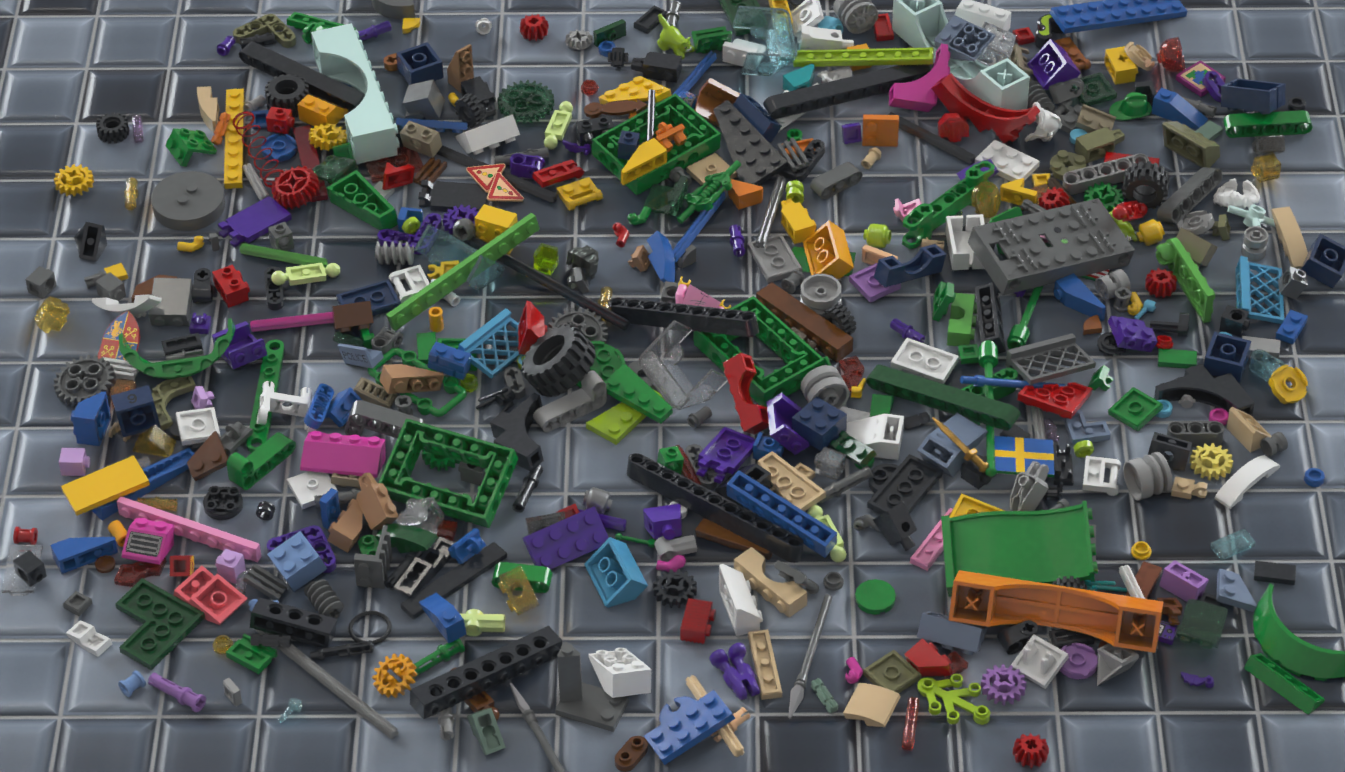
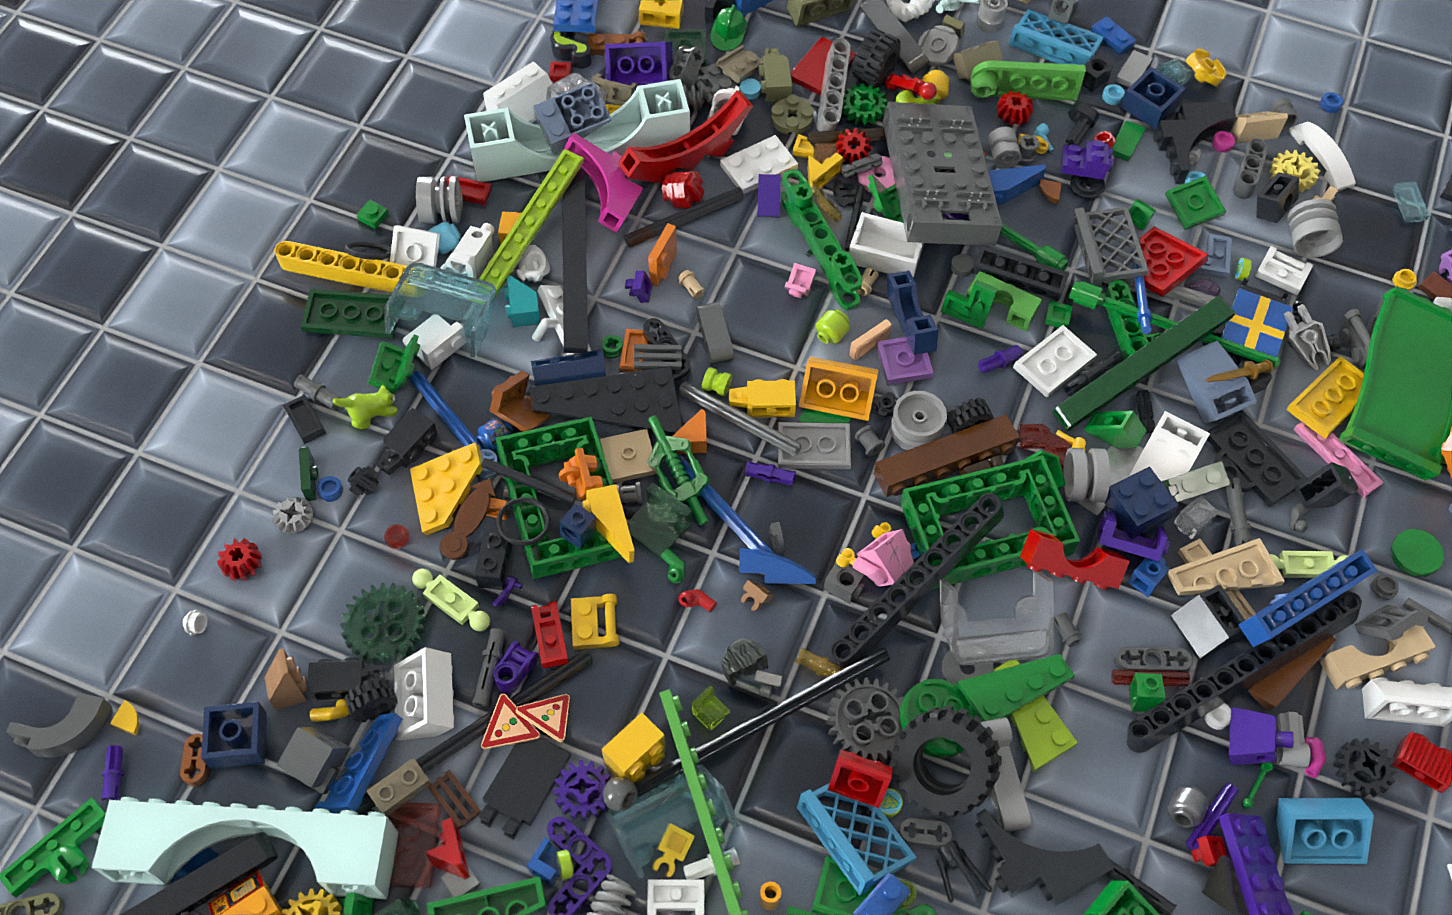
camera: 70 degrees left, 15 degrees up
(618, 112) = (520, 542): none -> black tyre
(725, 453) = (1148, 623): dark purple tile -> none

